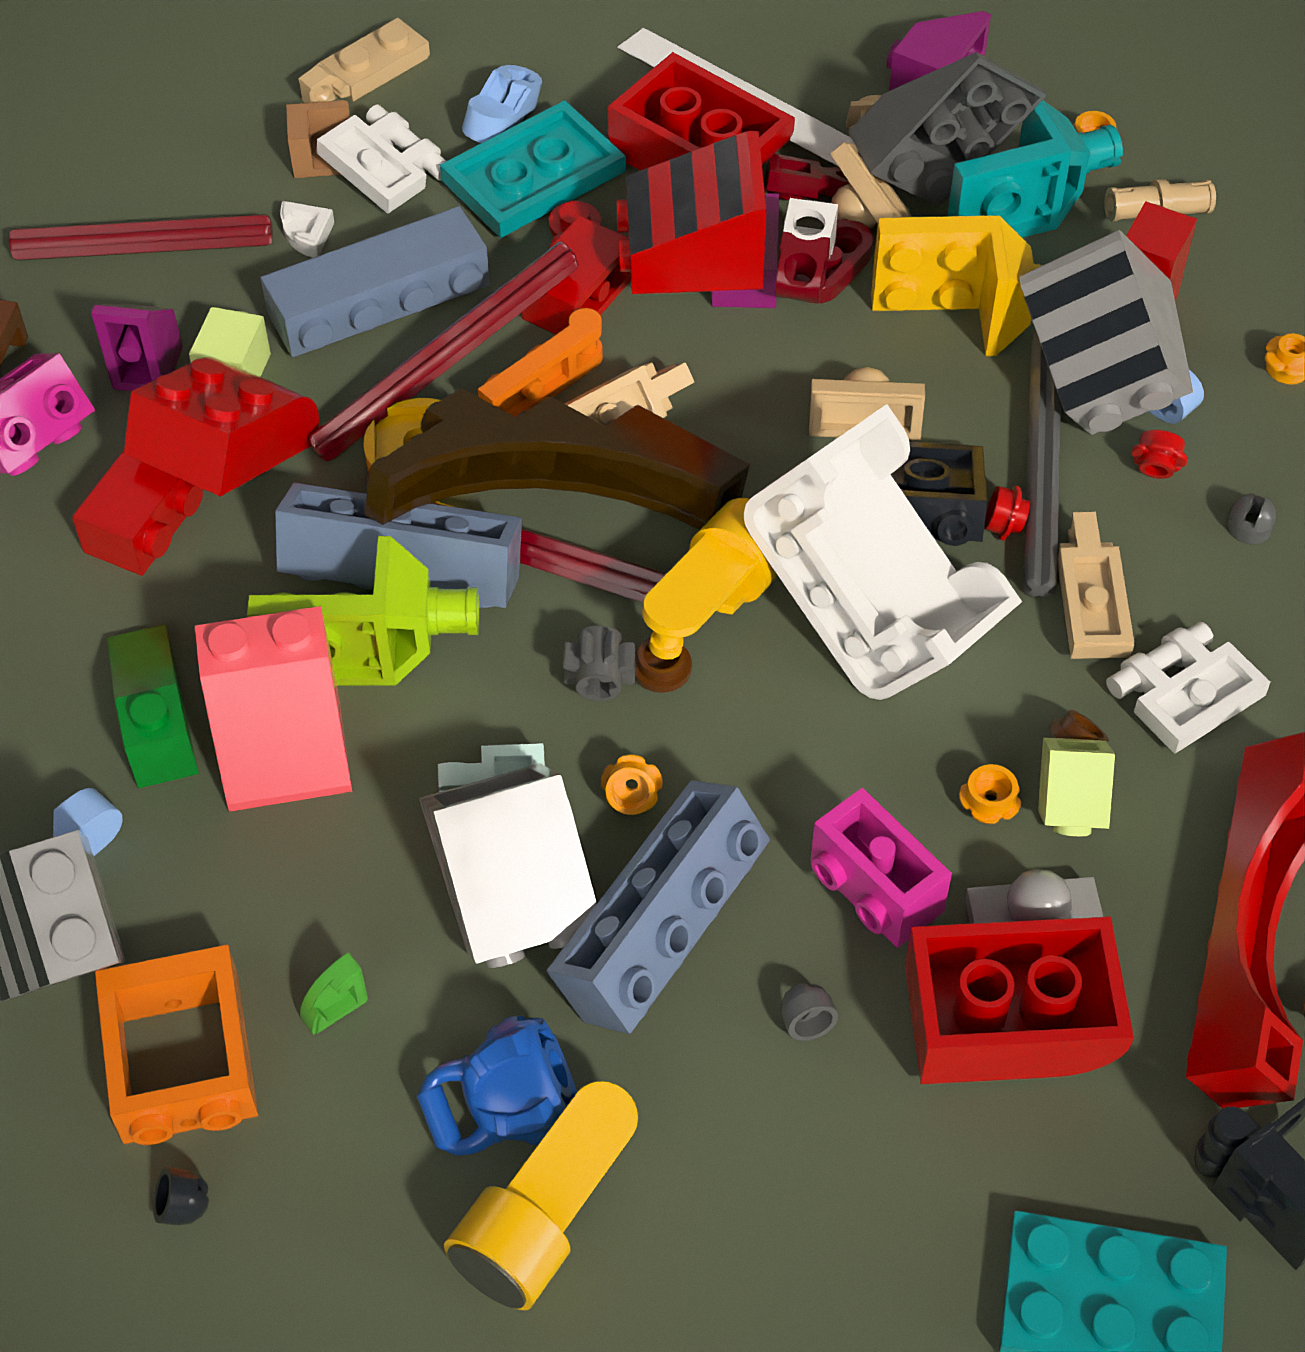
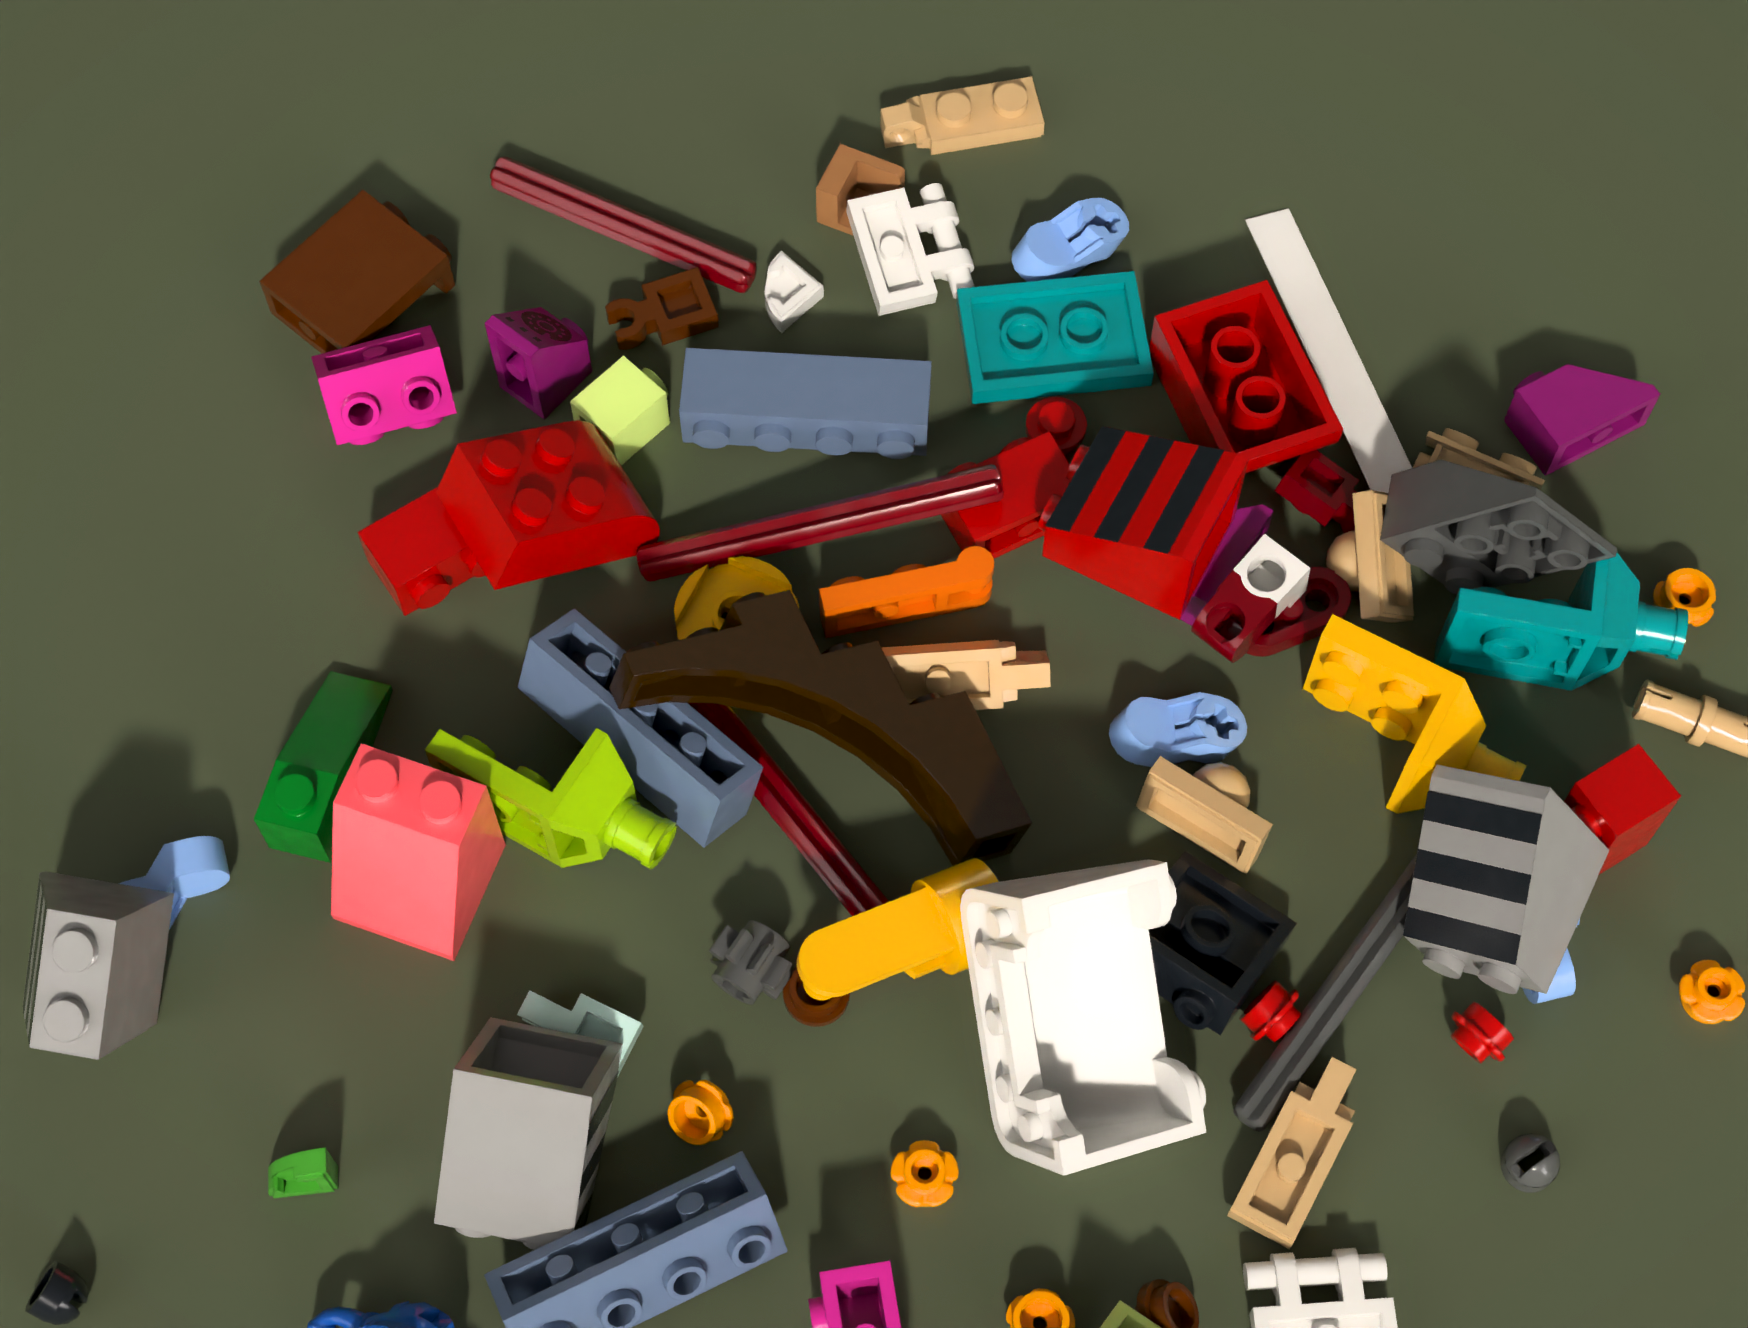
camera: 30 degrees right, 10 degrees up
(163, 988) = (163, 1077): orange window -> none
(221, 271) = (671, 307): none -> reddish brown plate
(818, 354) = (1178, 729): none -> light blue piece
(832, 756) = (921, 1192): none -> light orange plate

